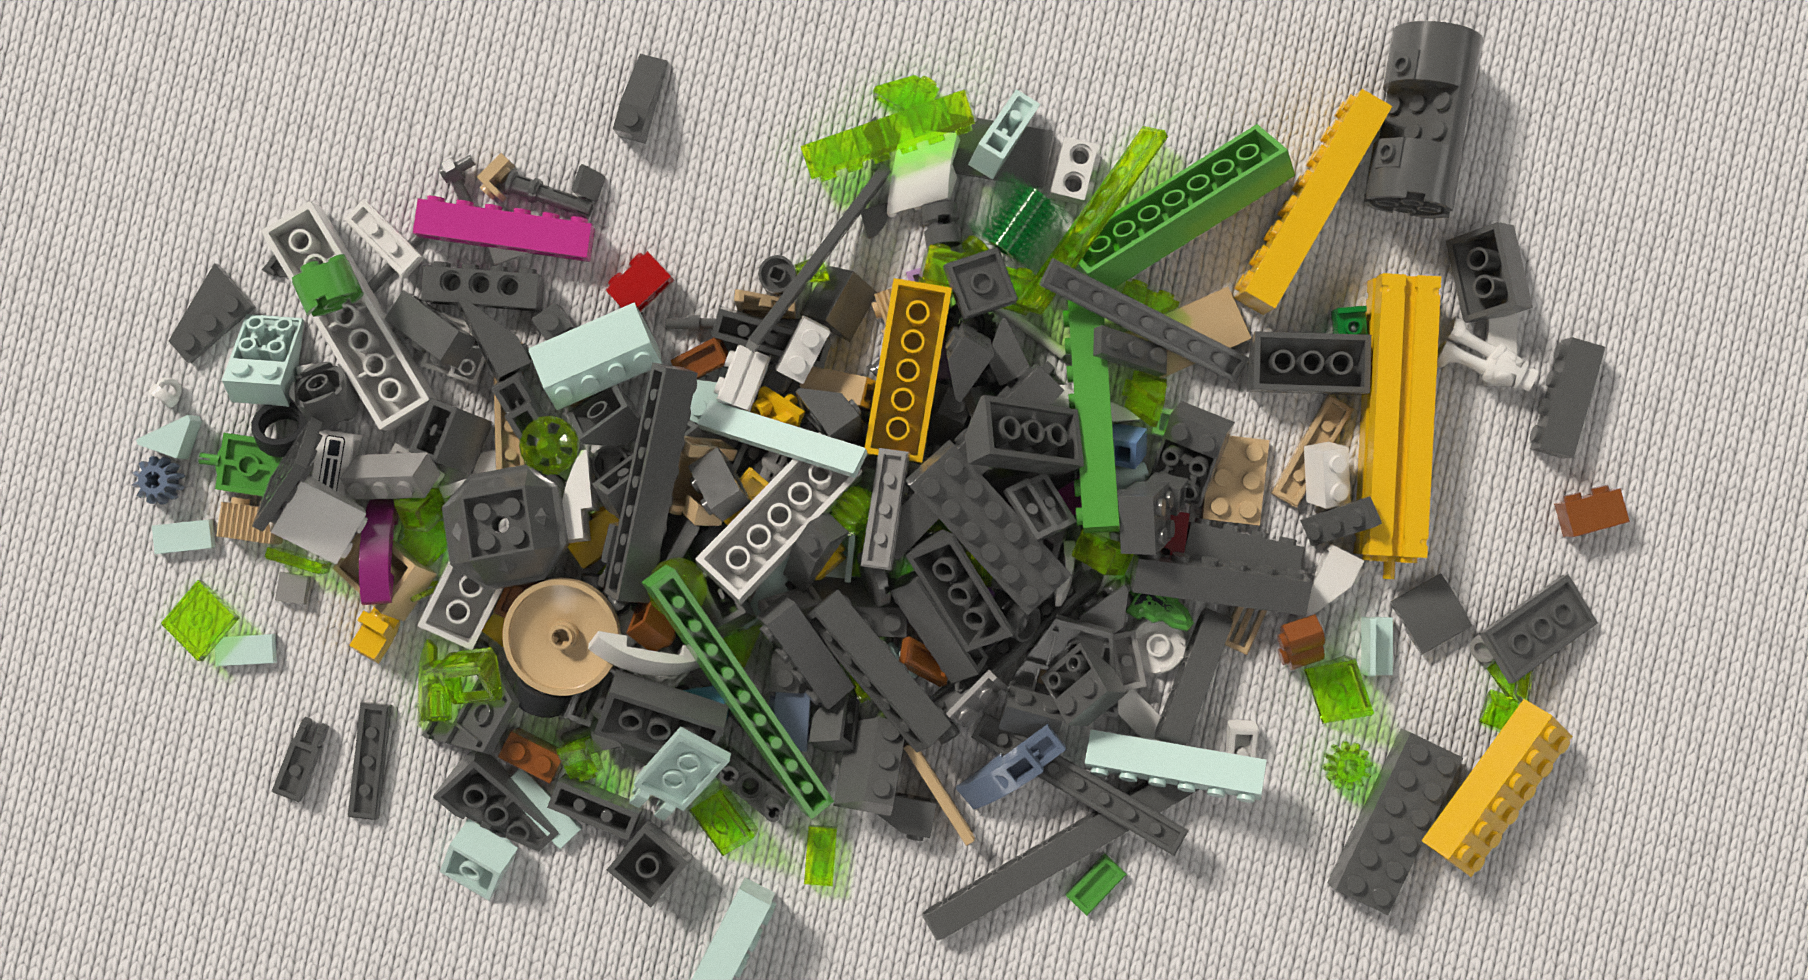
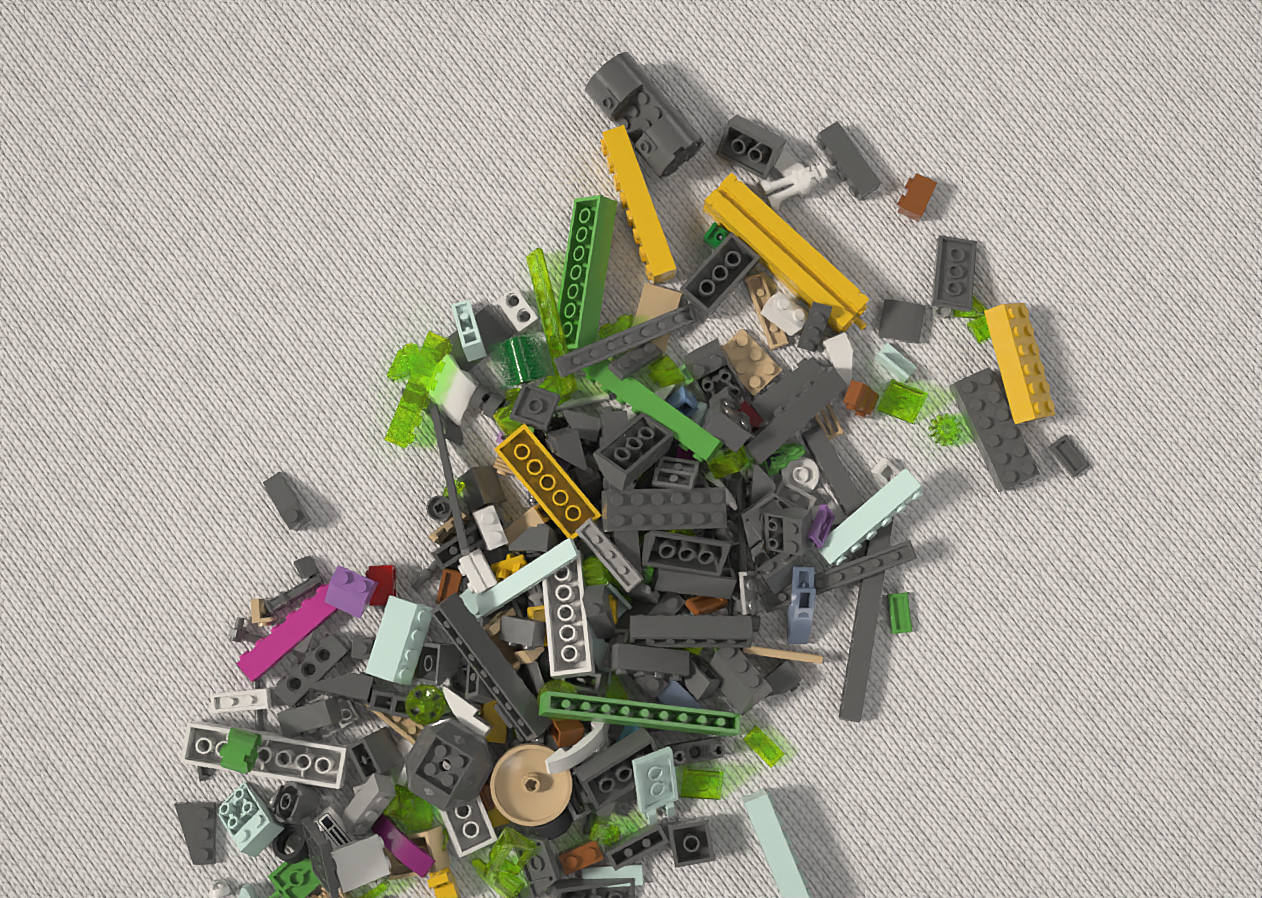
camera: 50 degrees left, 5 degrees down
(602, 254) = (350, 591): none -> medium lavender slope
(1119, 718) = (821, 526): none -> medium lavender tile
(1435, 929) = (1068, 456): none -> dark grey tile

